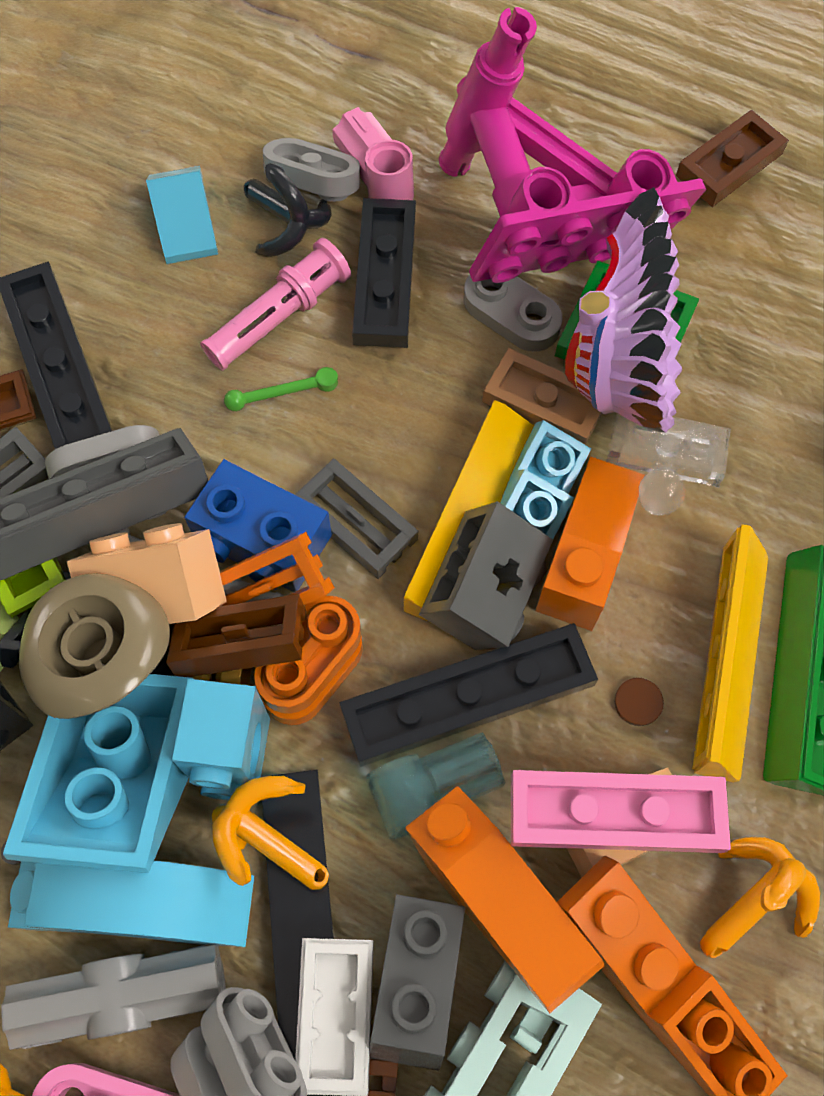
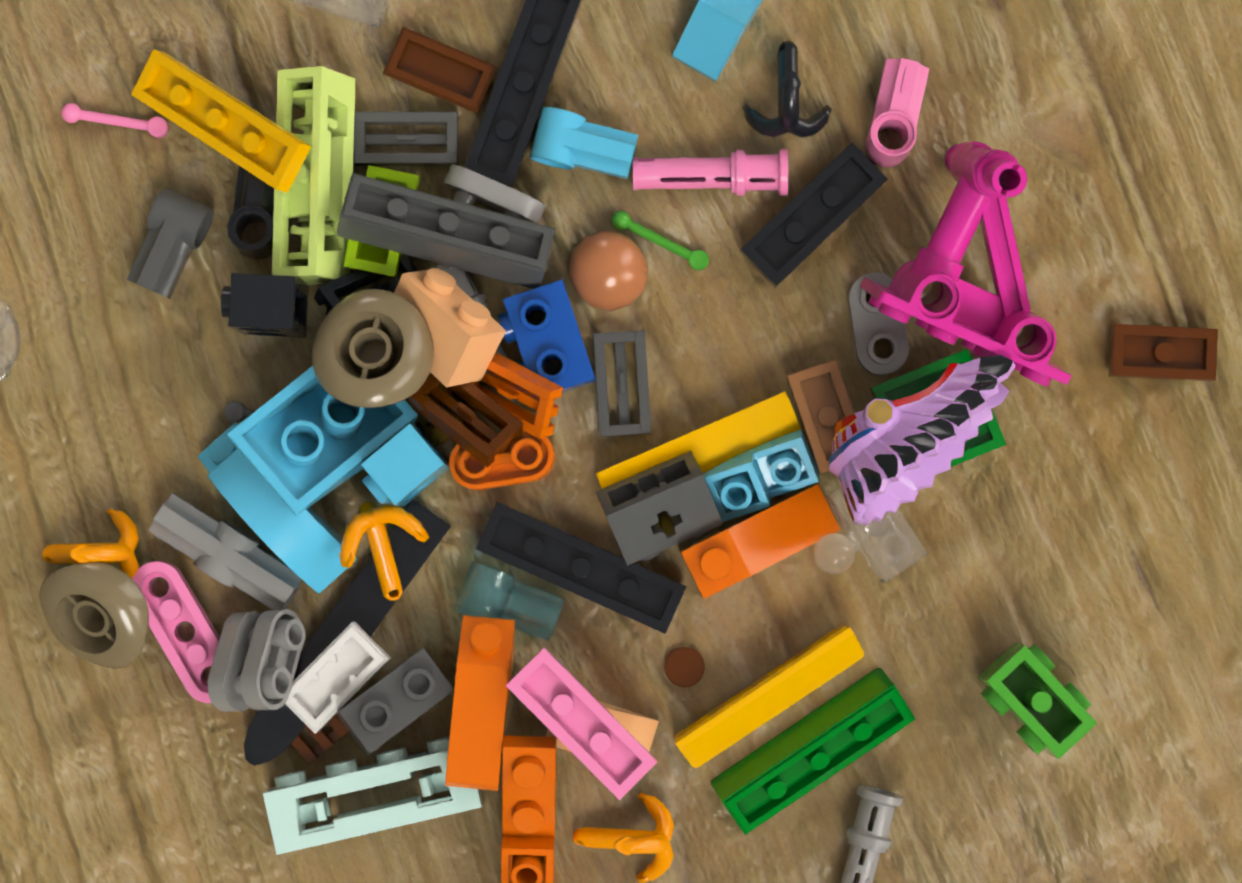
camera: 45 degrees right, 20 degrees up
(135, 372) = (569, 142): none -> medium azure piece
(260, 438) = (607, 270): none -> nougat hair
(315, 167) = (843, 81): light grey plate -> none

